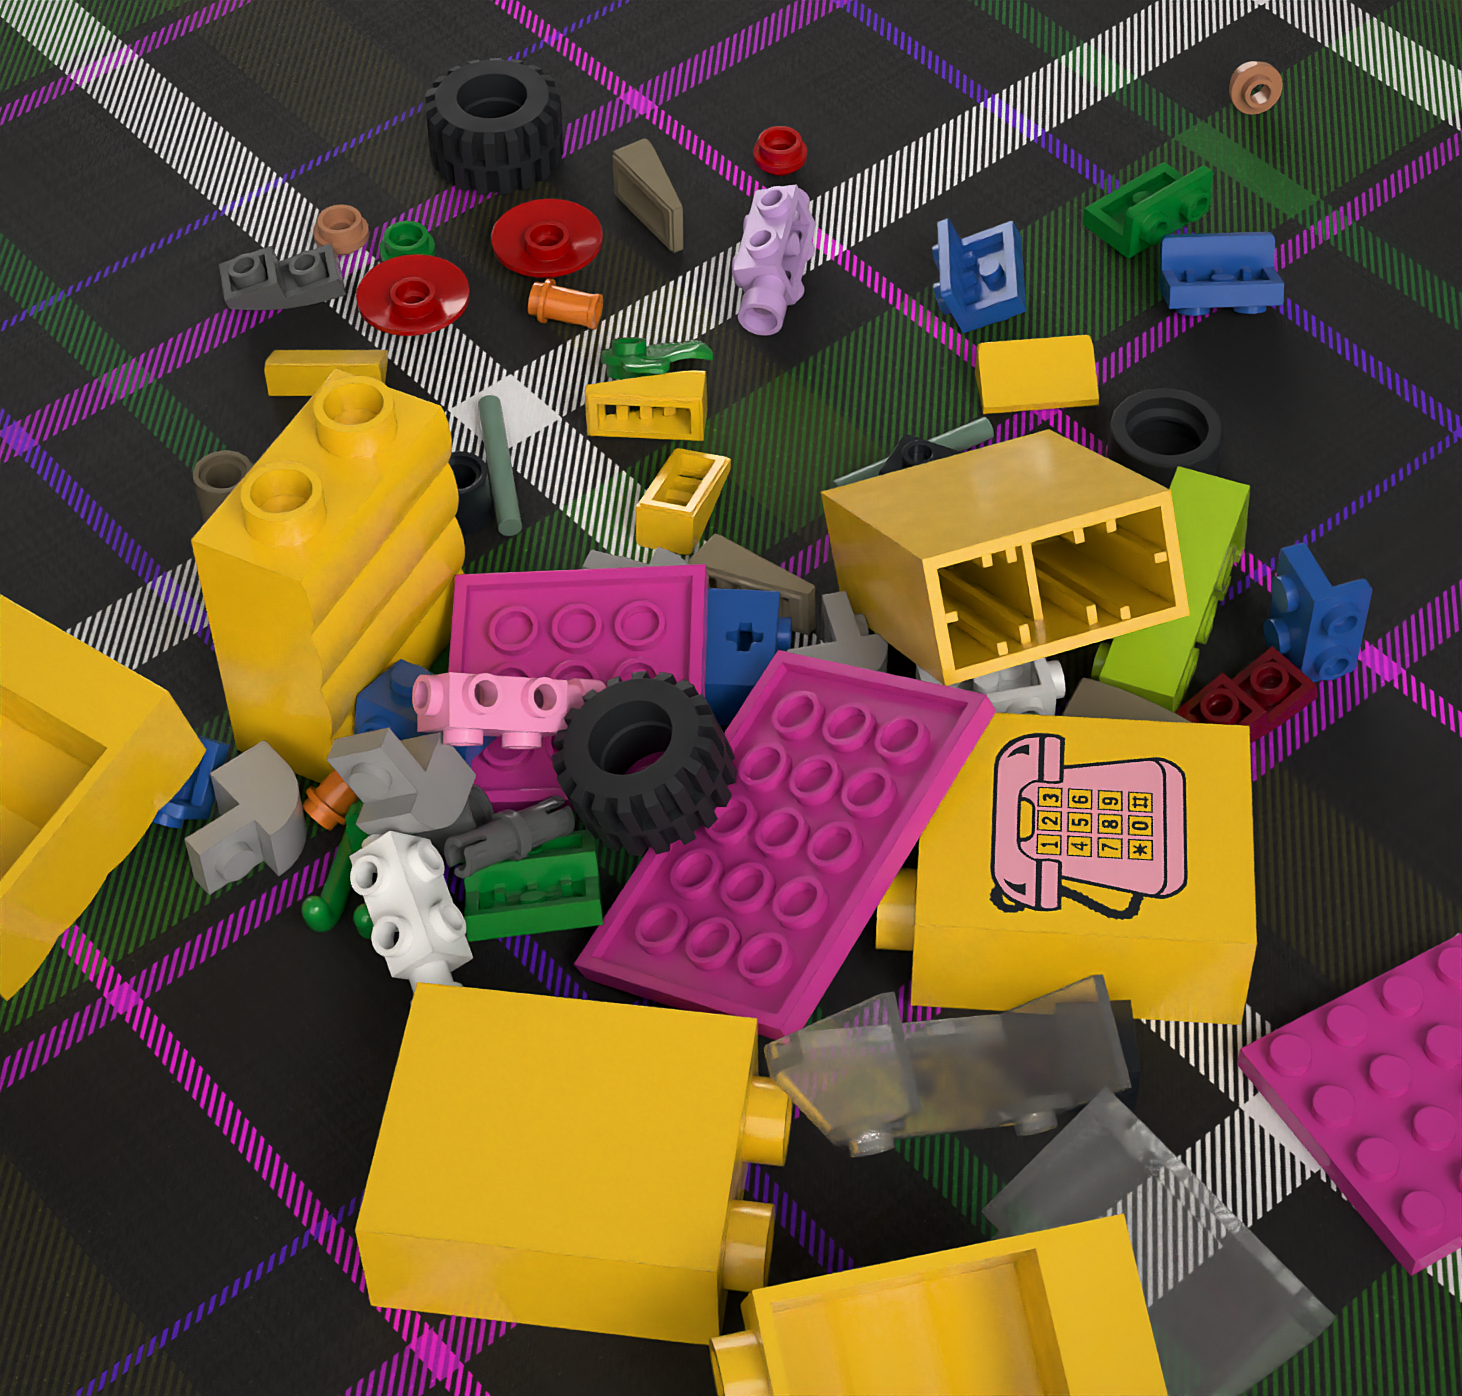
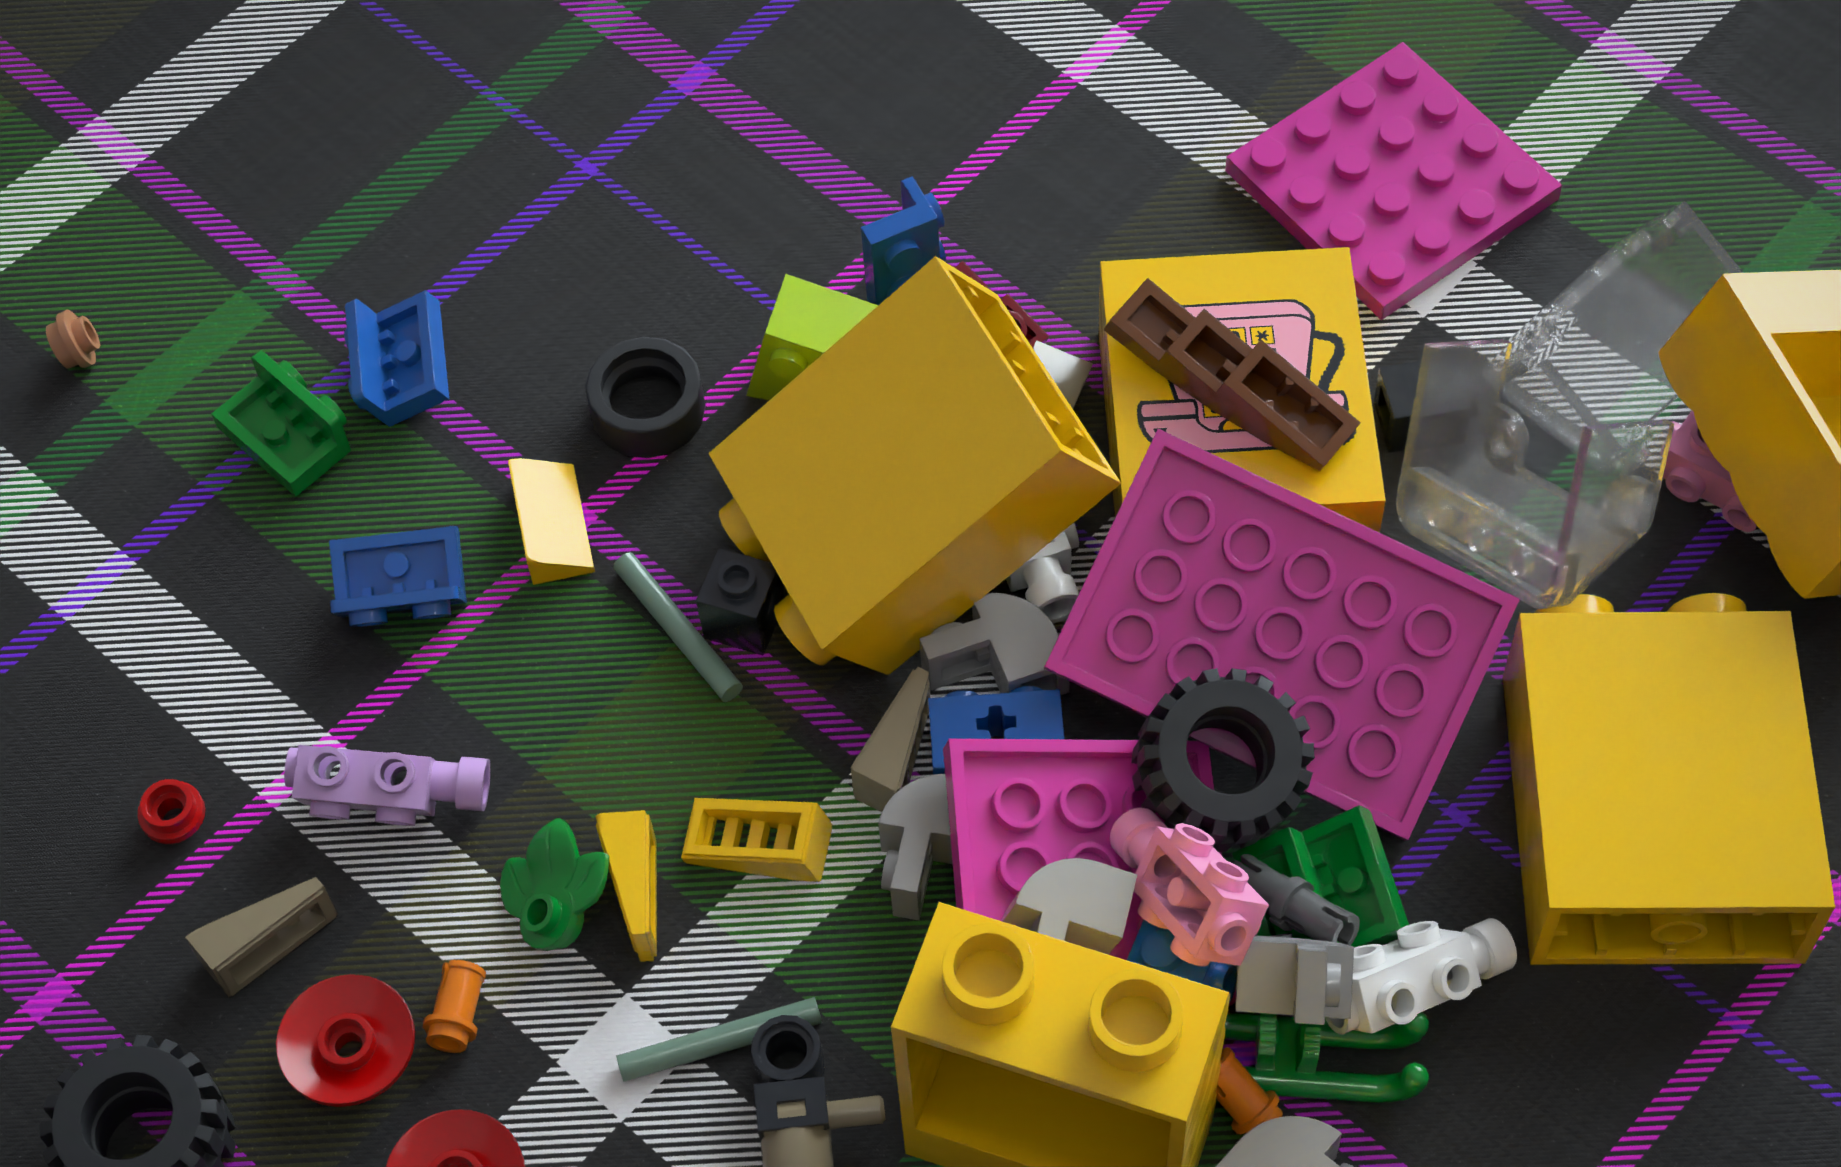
camera: 95 degrees left, 10 degrees up
(511, 624) = (1075, 903): none -> light grey brick
(1074, 799) = (1229, 377): none -> reddish brown slope

